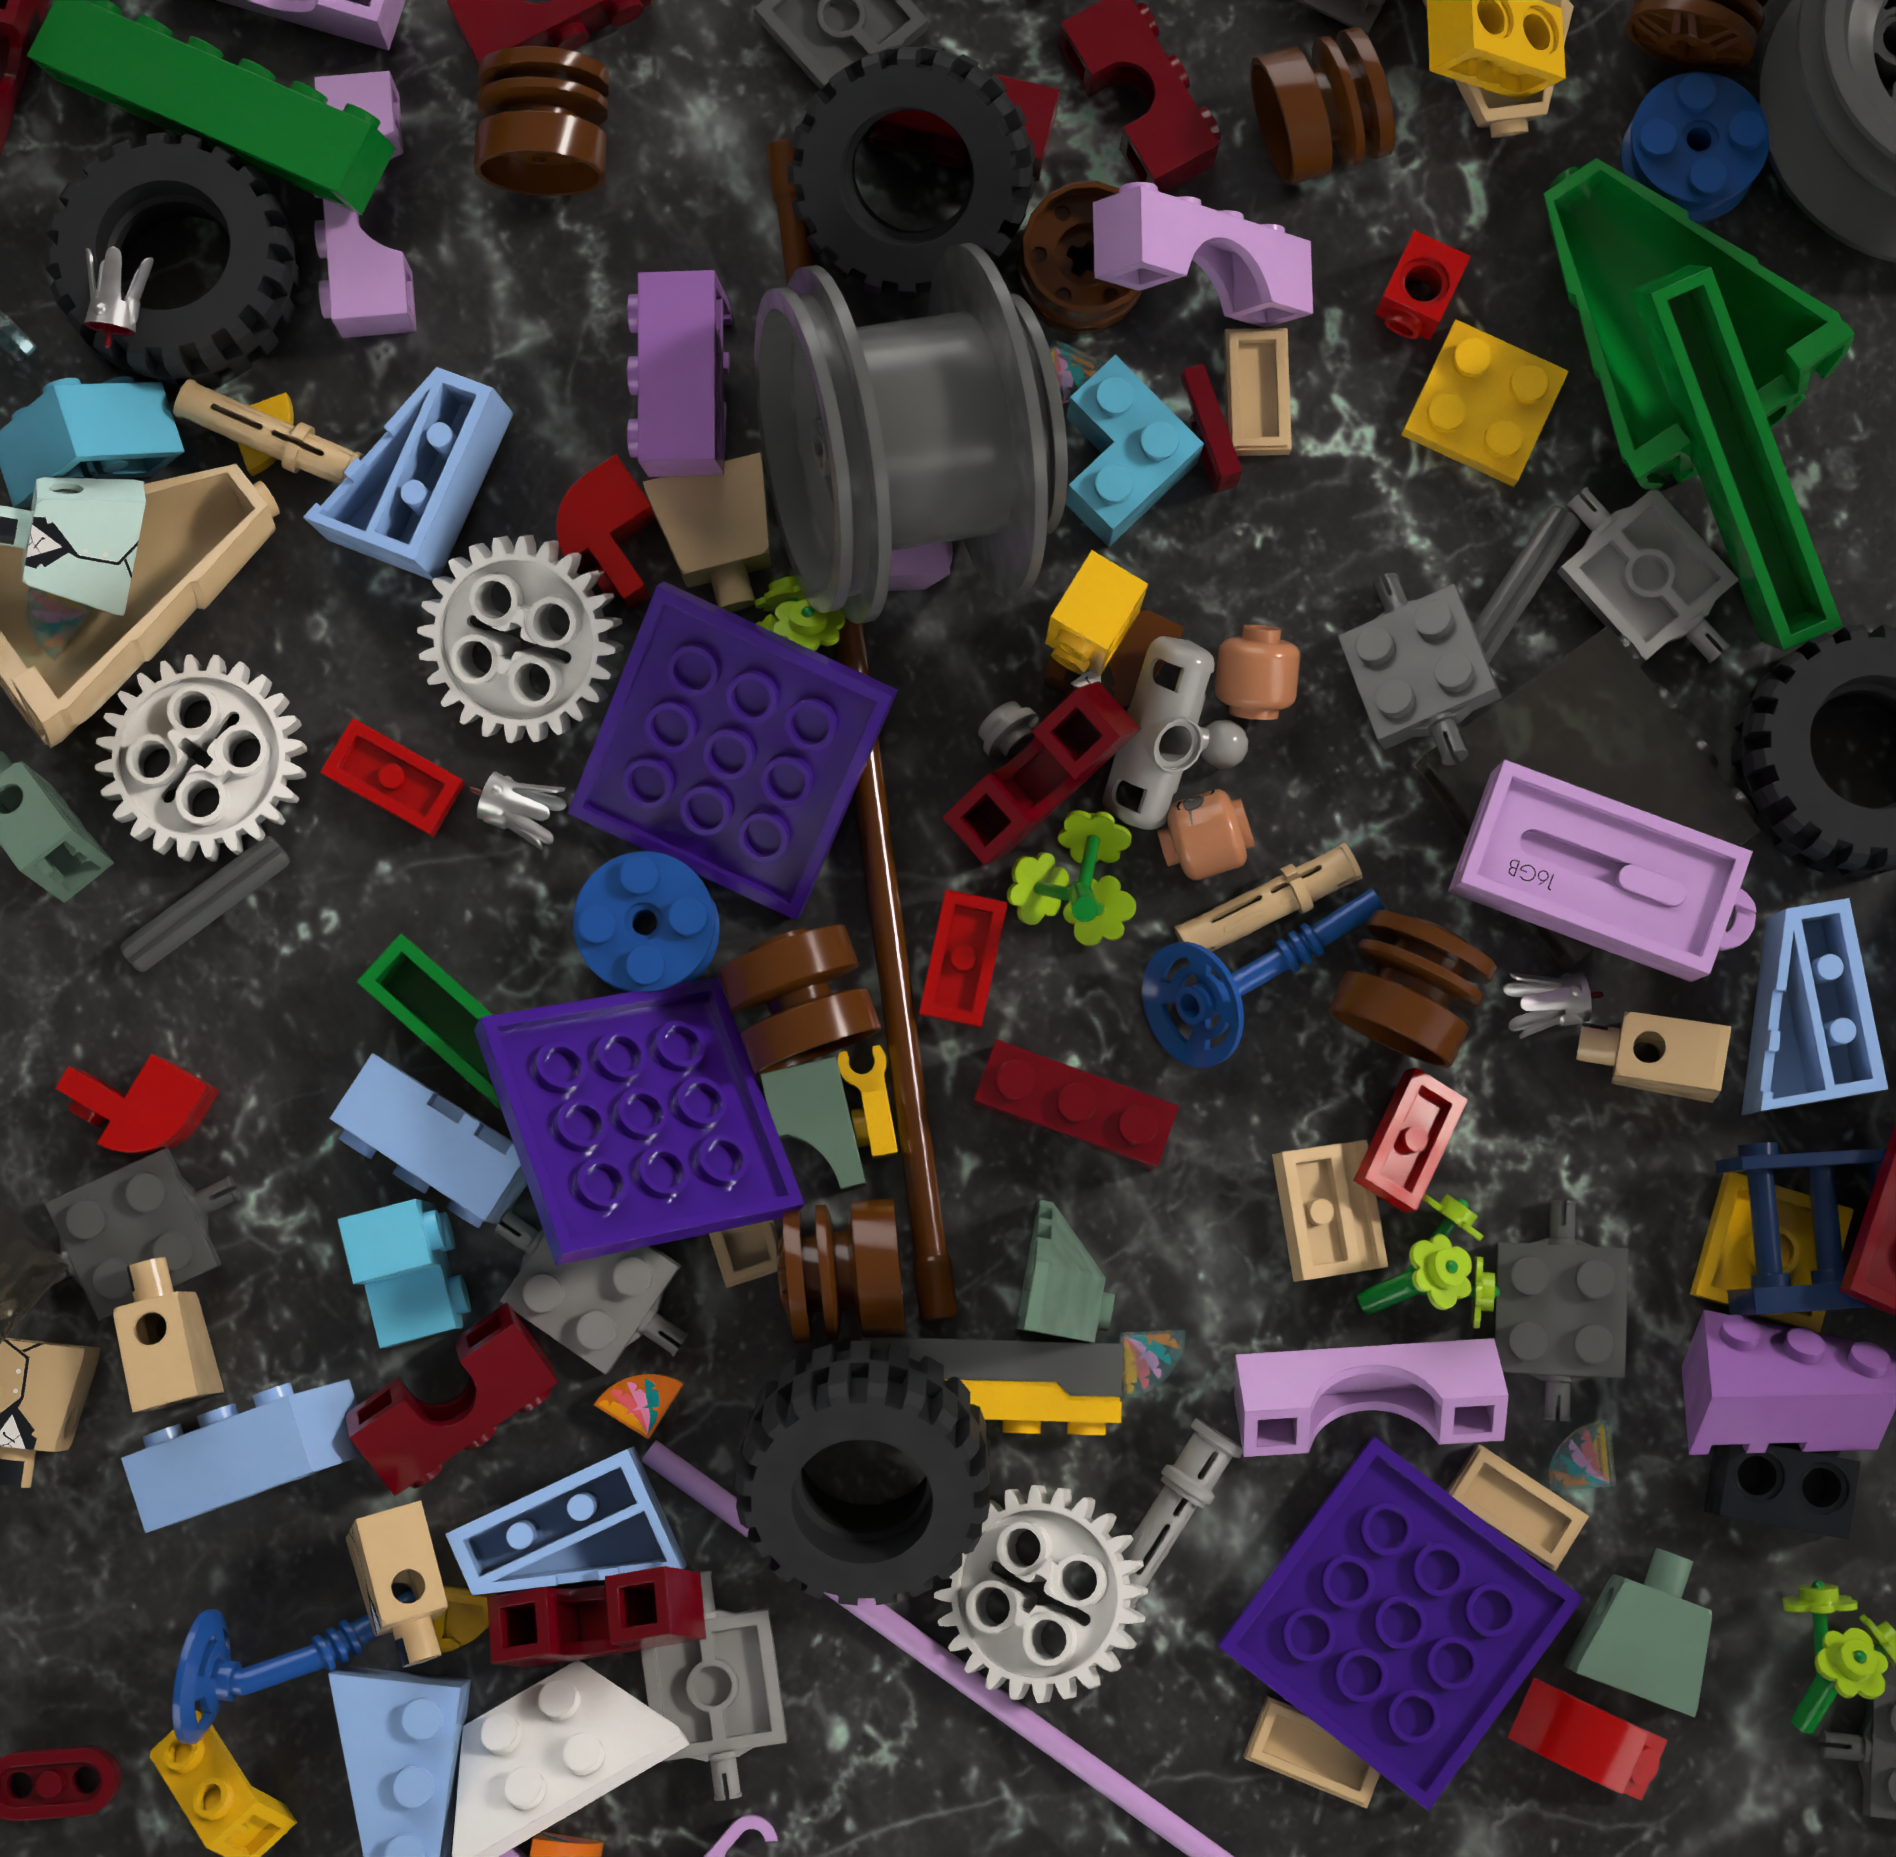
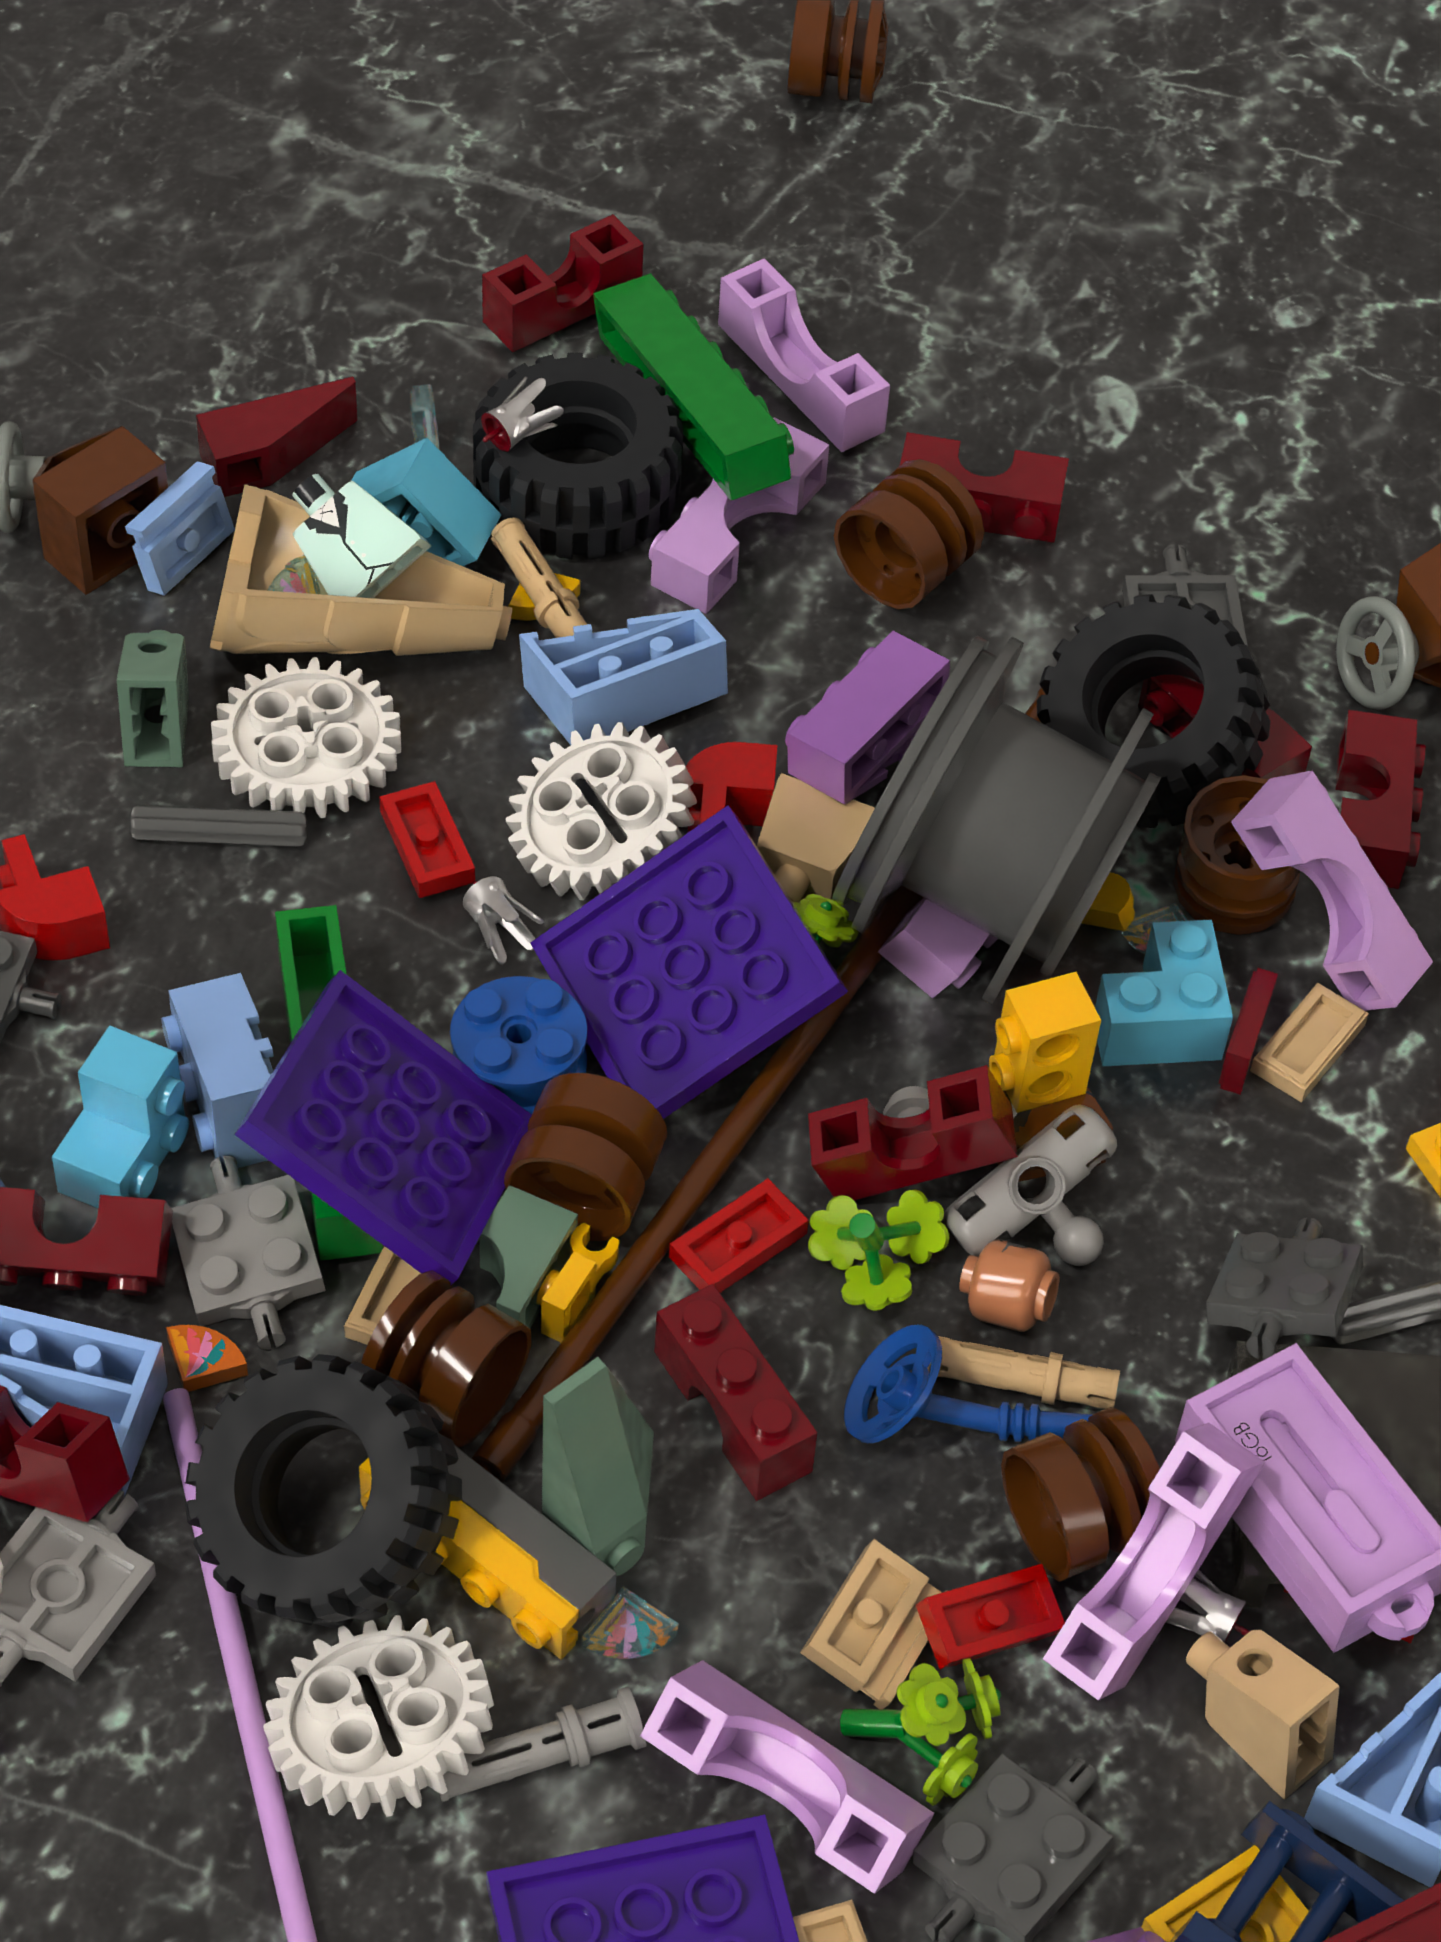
camera: 40 degrees right, 30 degrees down
(1257, 673) = (1147, 1206): nougat head -> none
(1528, 980) = (1132, 1601): none -> lavender arch

